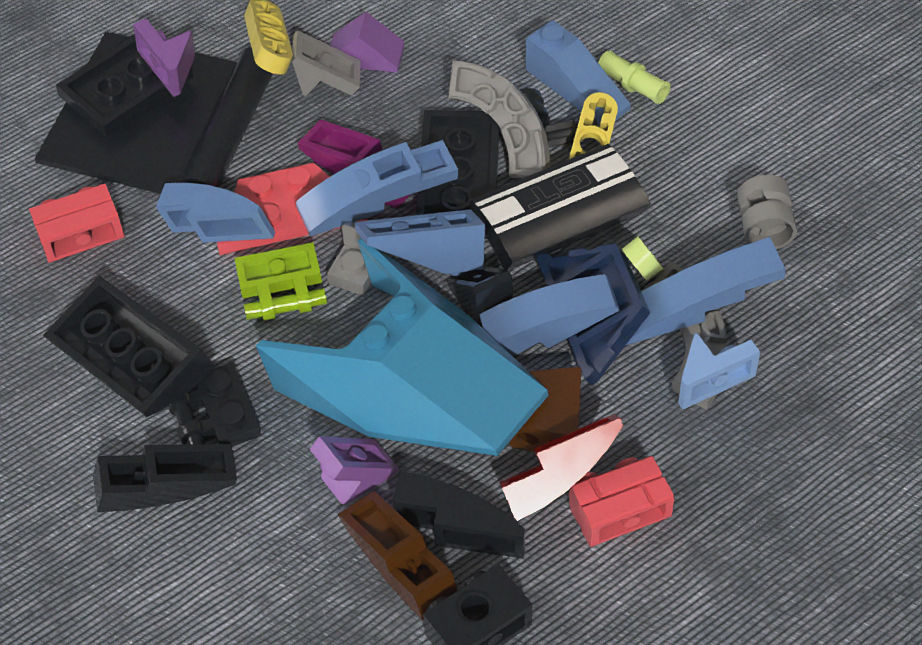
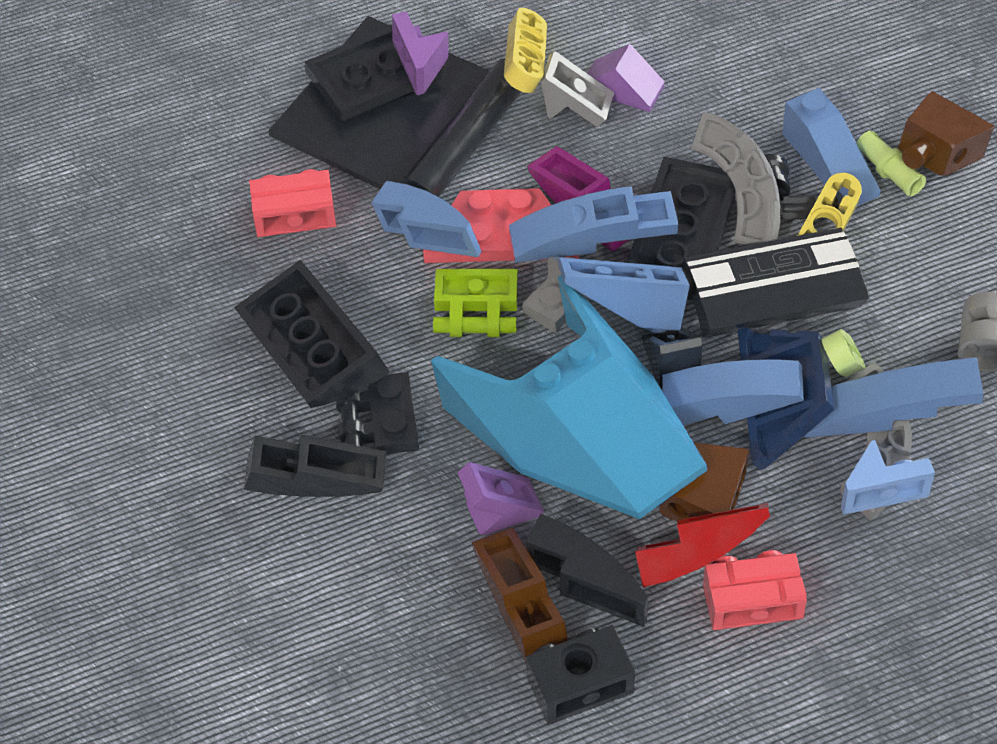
camera: 15 degrees right, 0 degrees up
(676, 43) = (943, 136): none -> reddish brown torso

